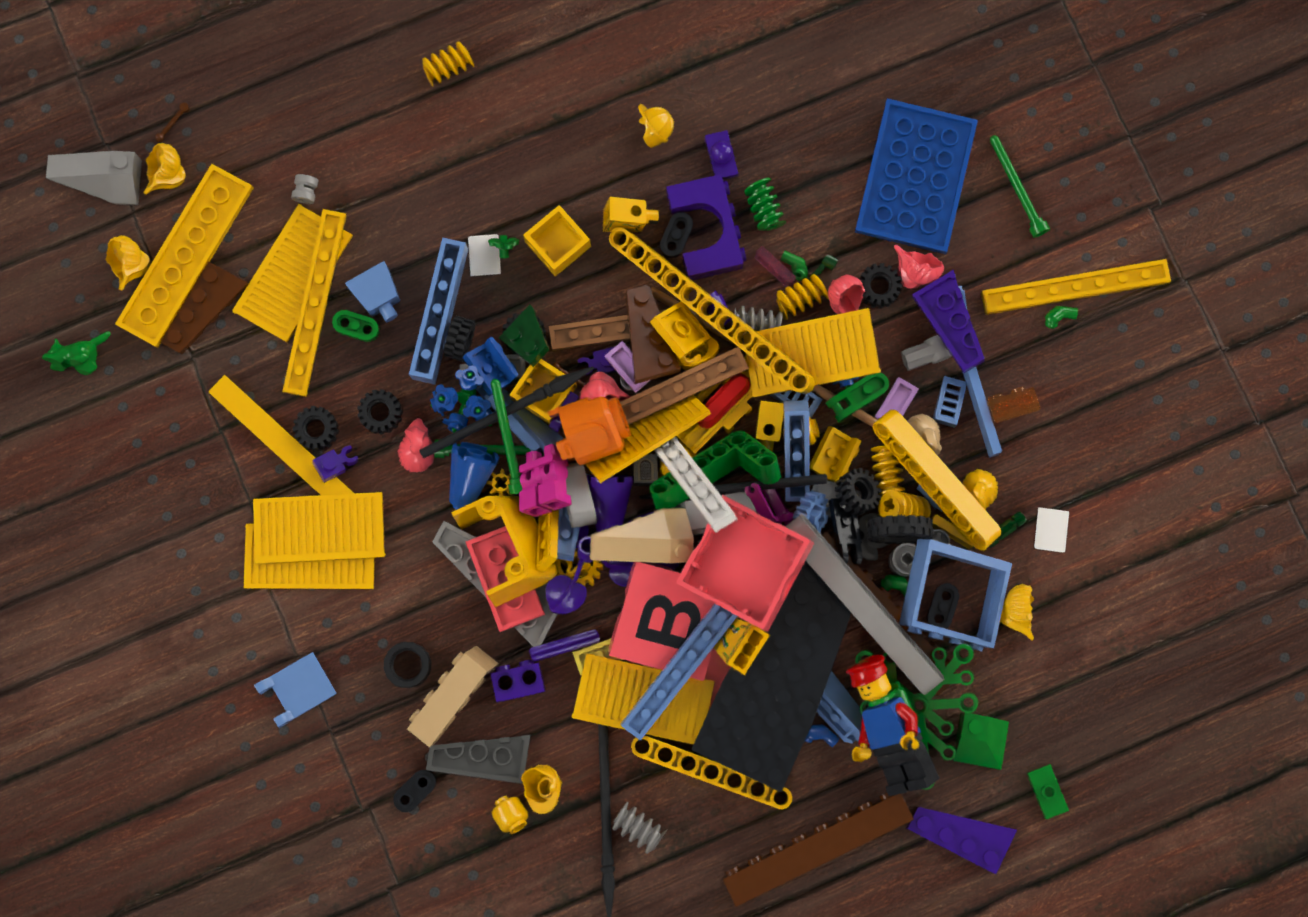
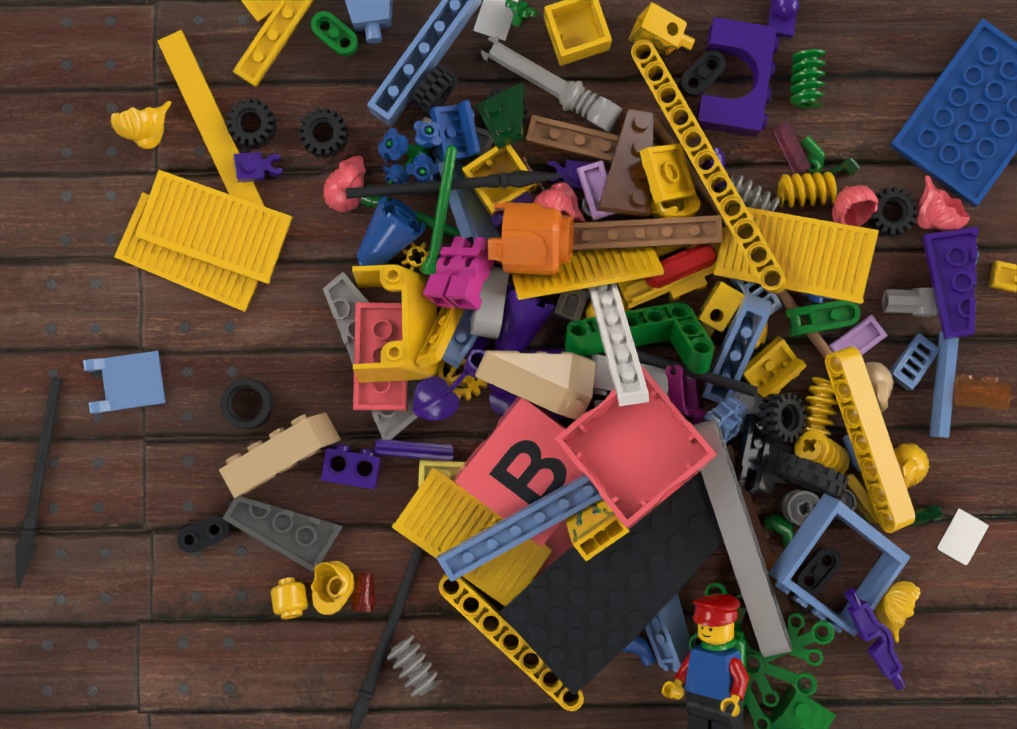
camera: 20 degrees right, 5 degrees up
(225, 468) = (141, 126): none -> yellow hair
(266, 863) = (26, 544): none -> black piece
(571, 784) = (364, 593): none -> clear red cone
(573, 297) = (570, 94): none -> light grey piece
(1002, 636) = (869, 628): none -> dark purple piece

